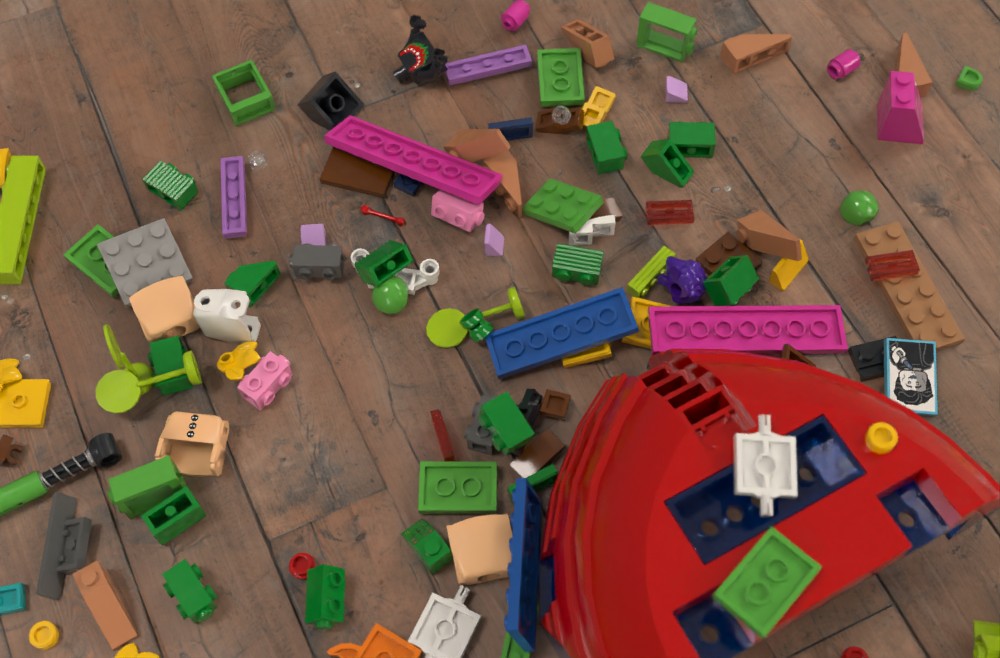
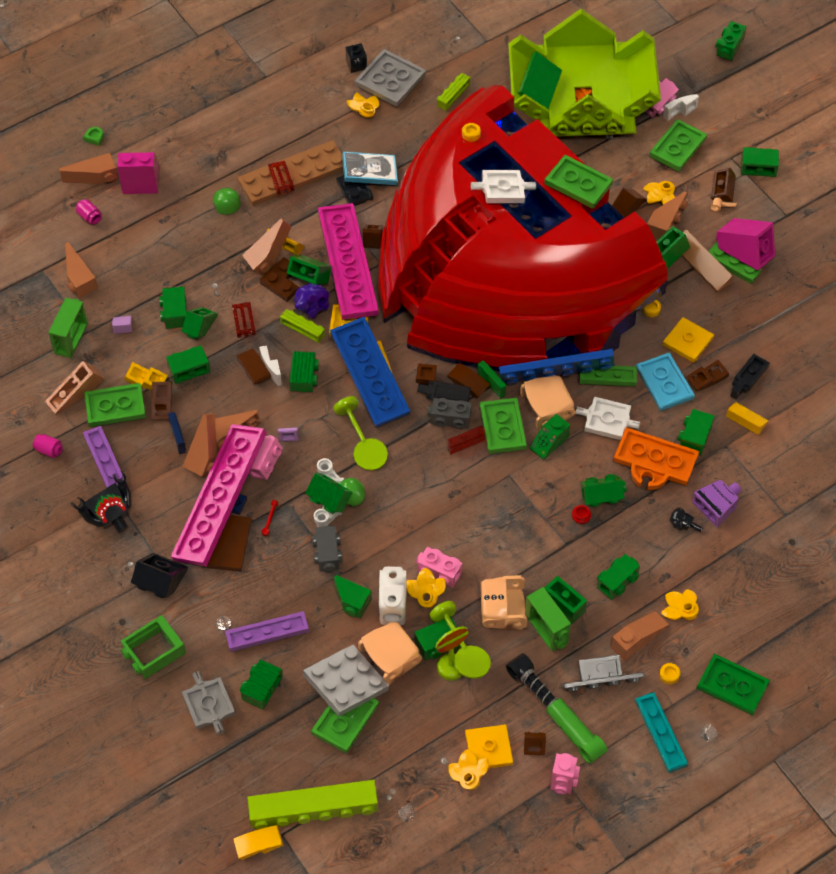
camera: 100 degrees left, 5 degrees down
(165, 137) = (208, 703): none -> light grey plate
(313, 234) = (302, 562): lavender slope -> none
(476, 325) = (370, 428): green wheel -> none
(505, 424) = (456, 388): green brick -> none
(557, 113) = (166, 395): clear hinge -> none
(562, 205) = (251, 384): bright green plate -> none

